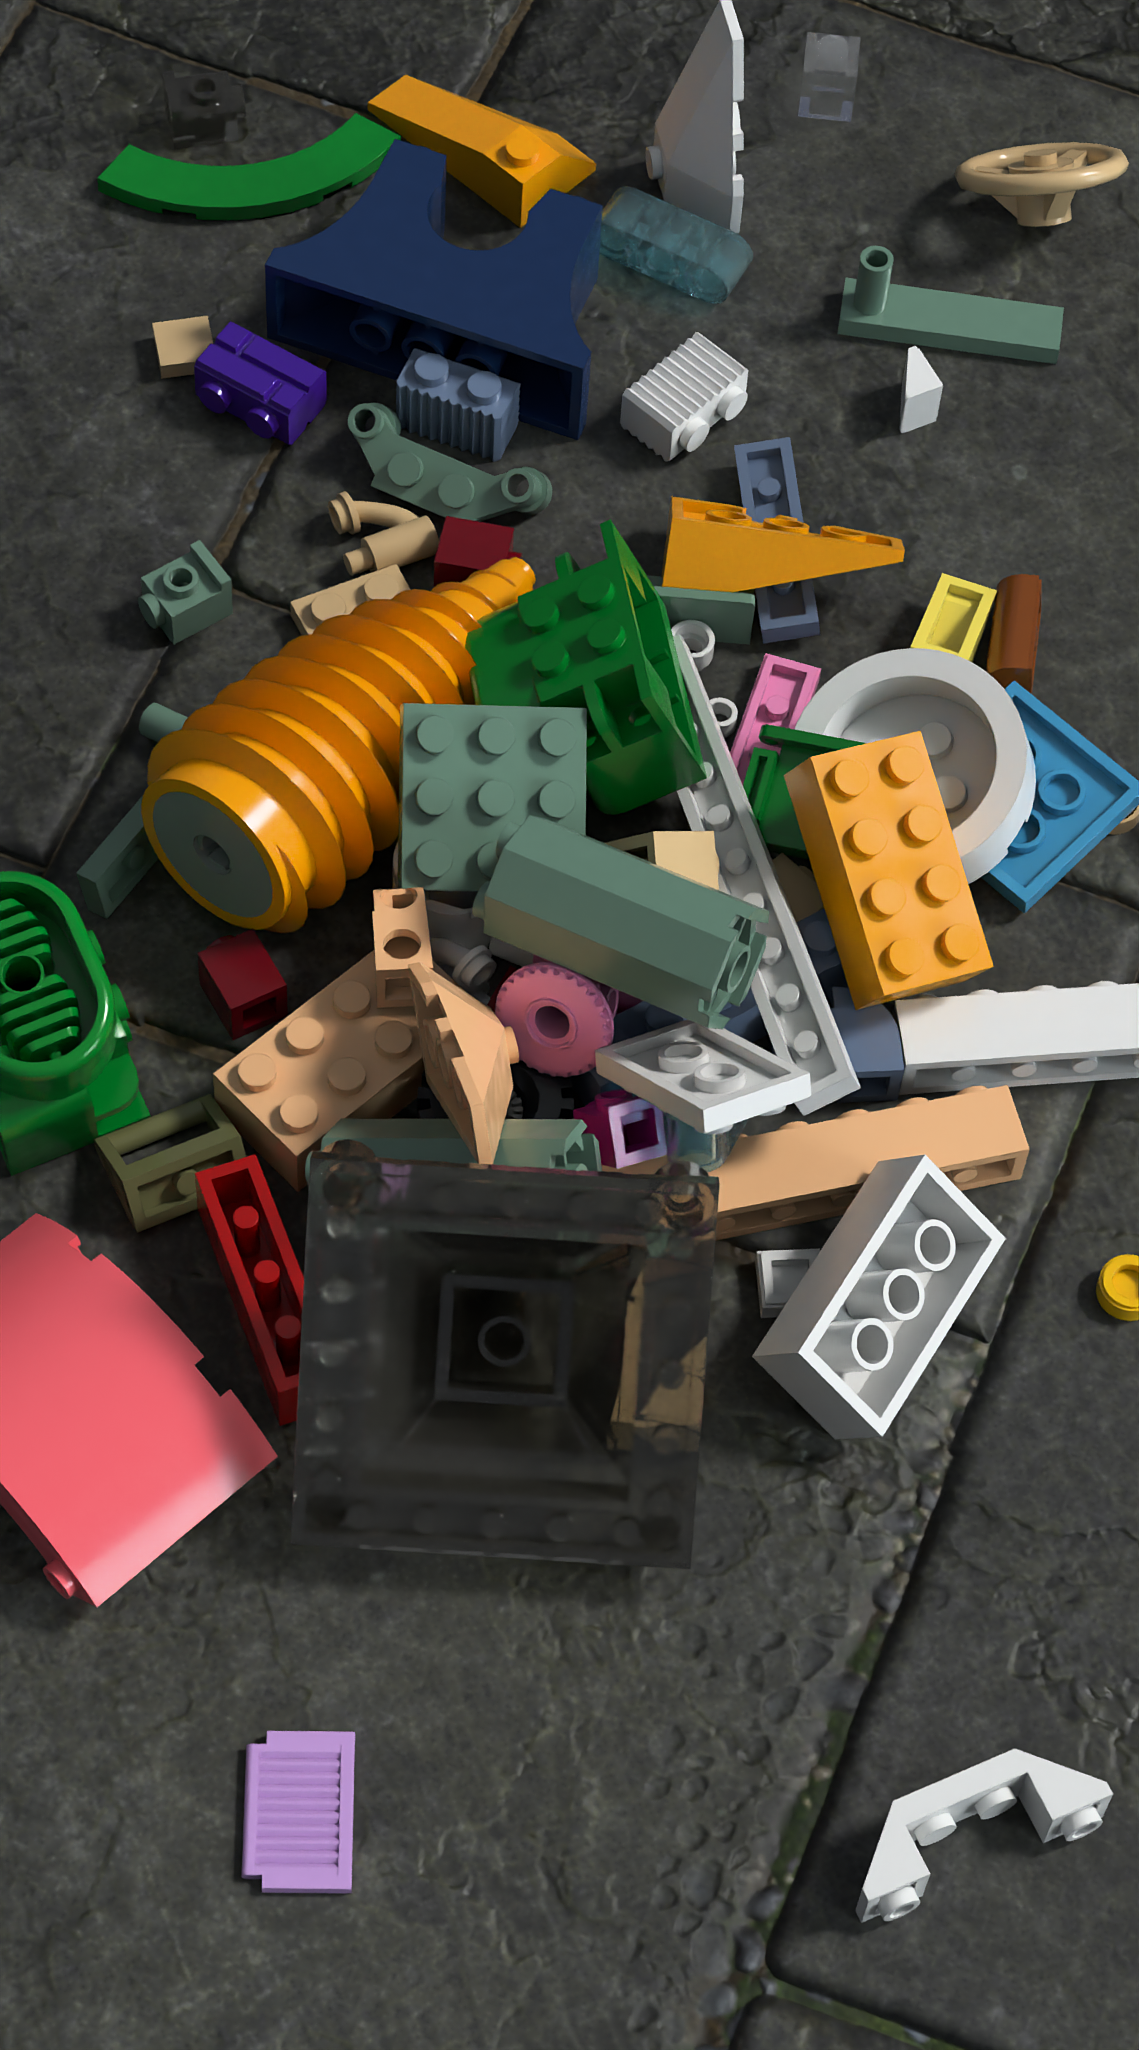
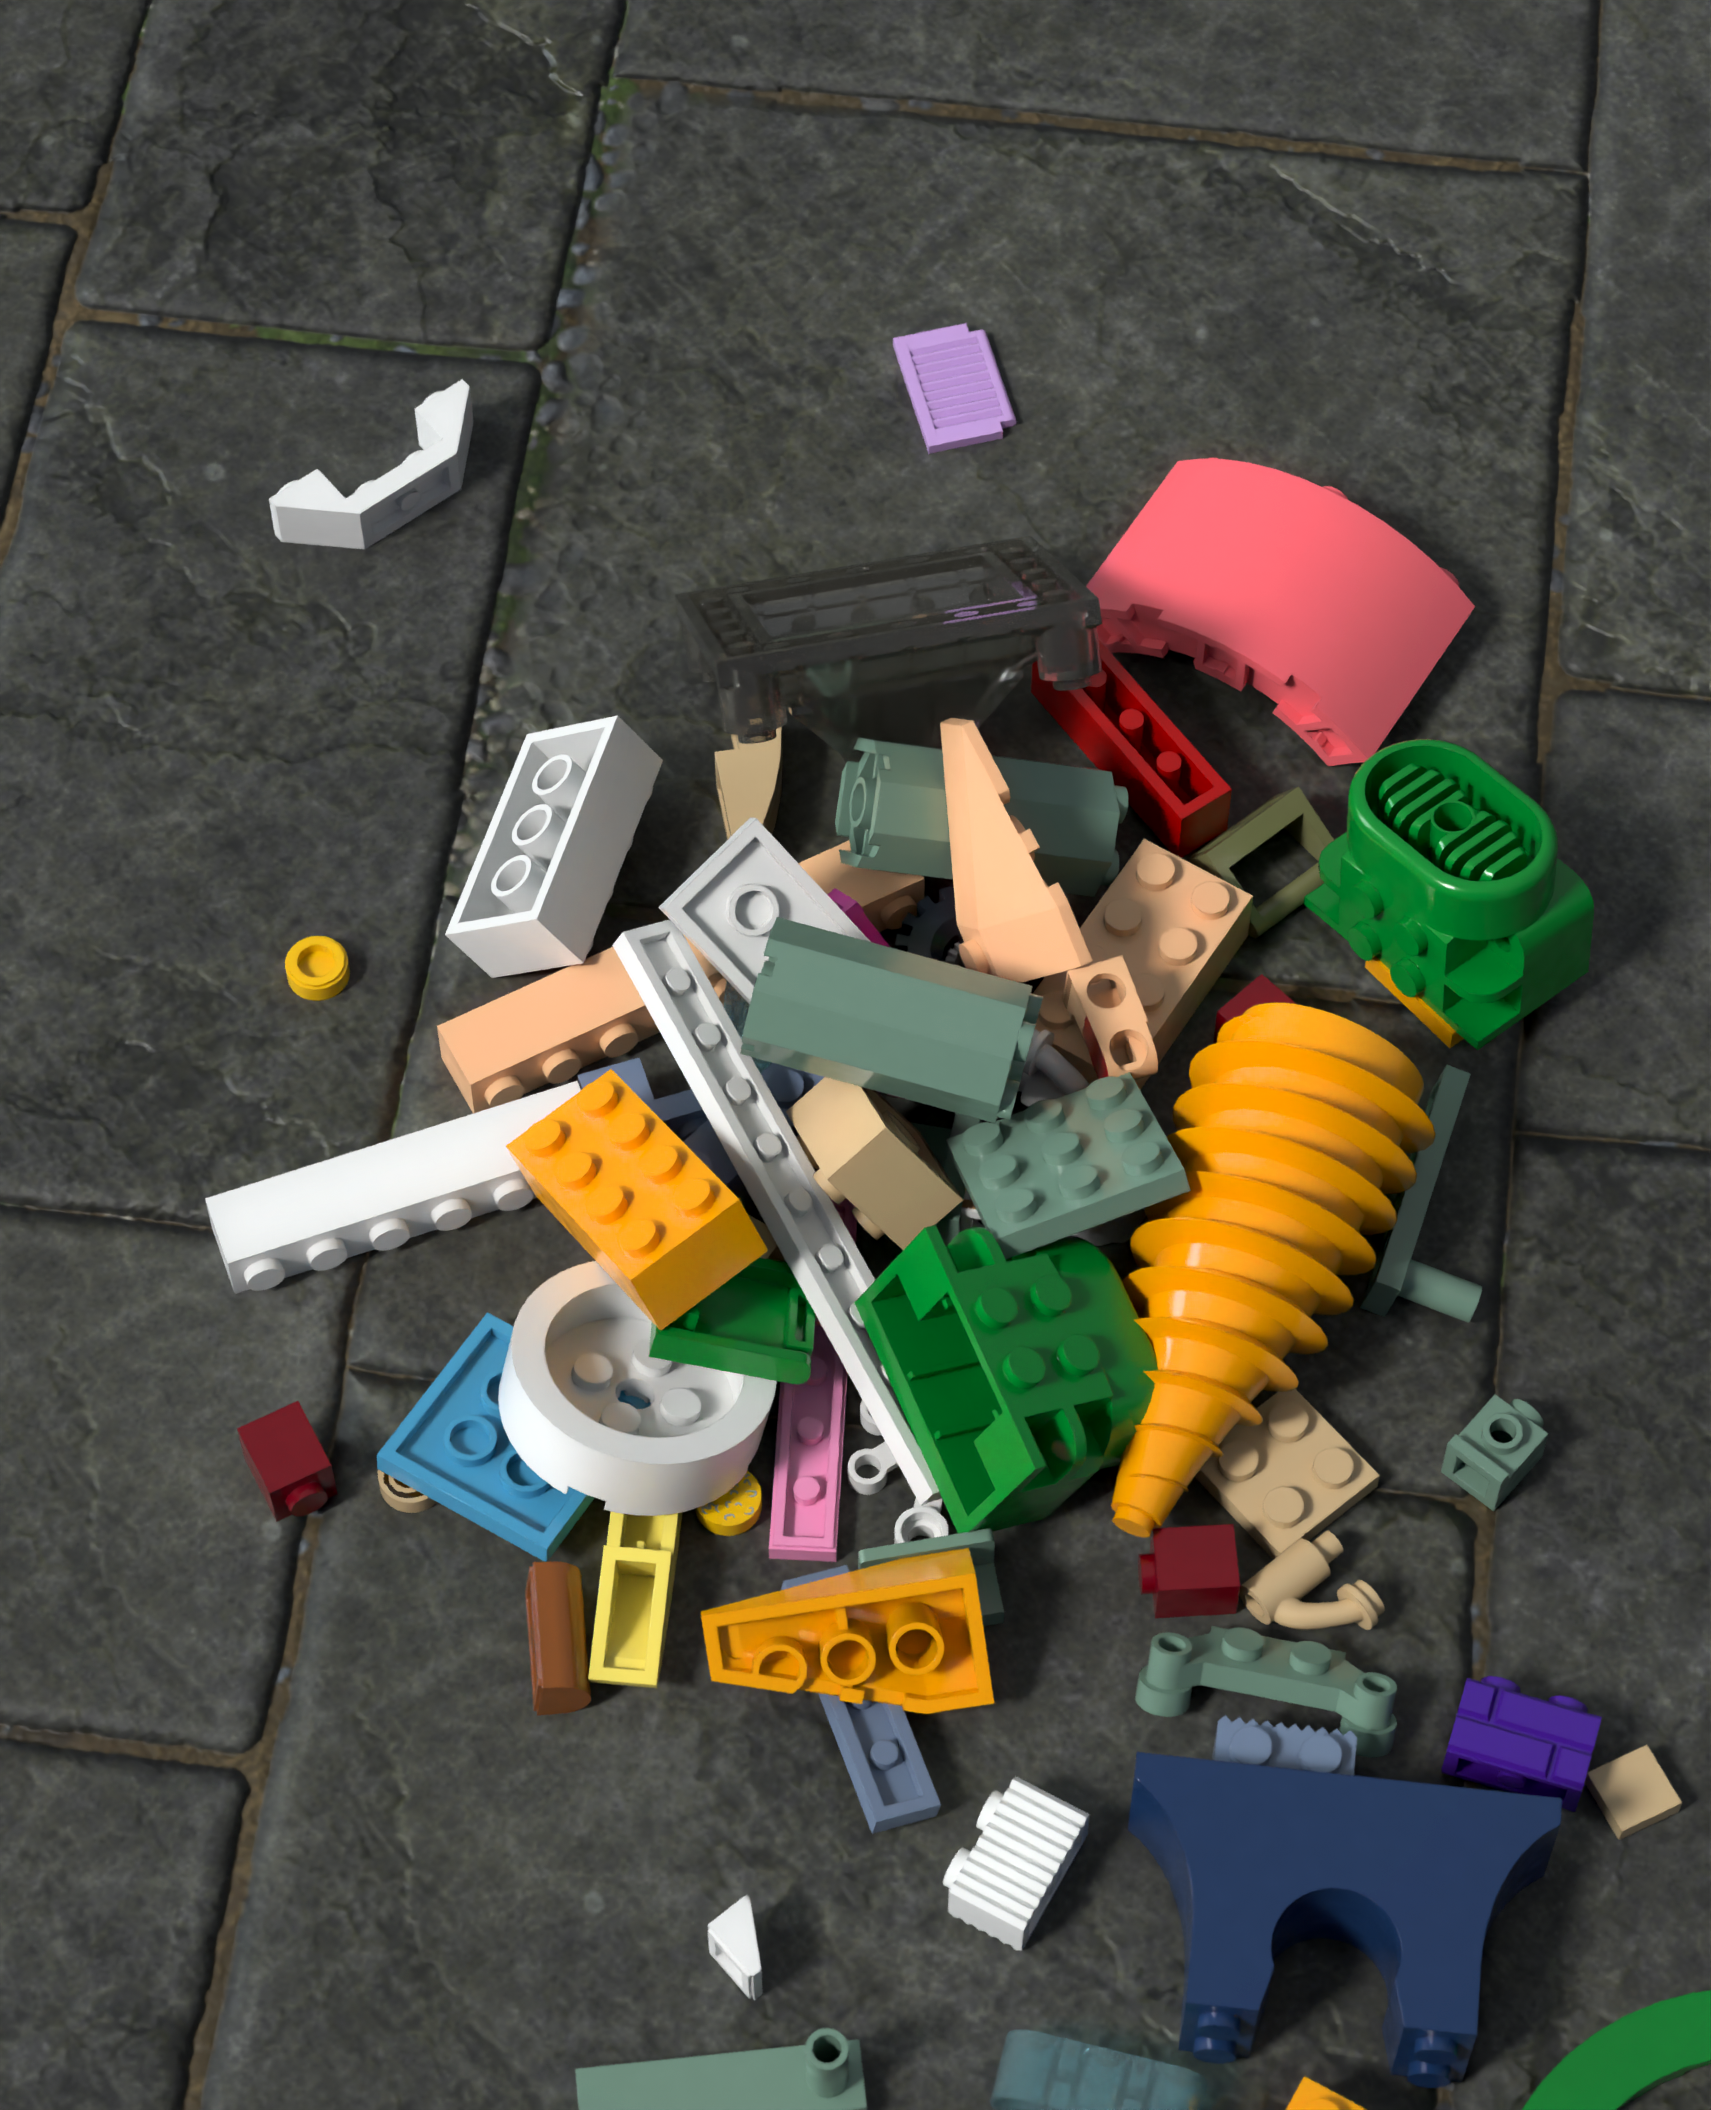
camera: 170 degrees right, 0 degrees up
(779, 1276) = (641, 891): white tile -> none

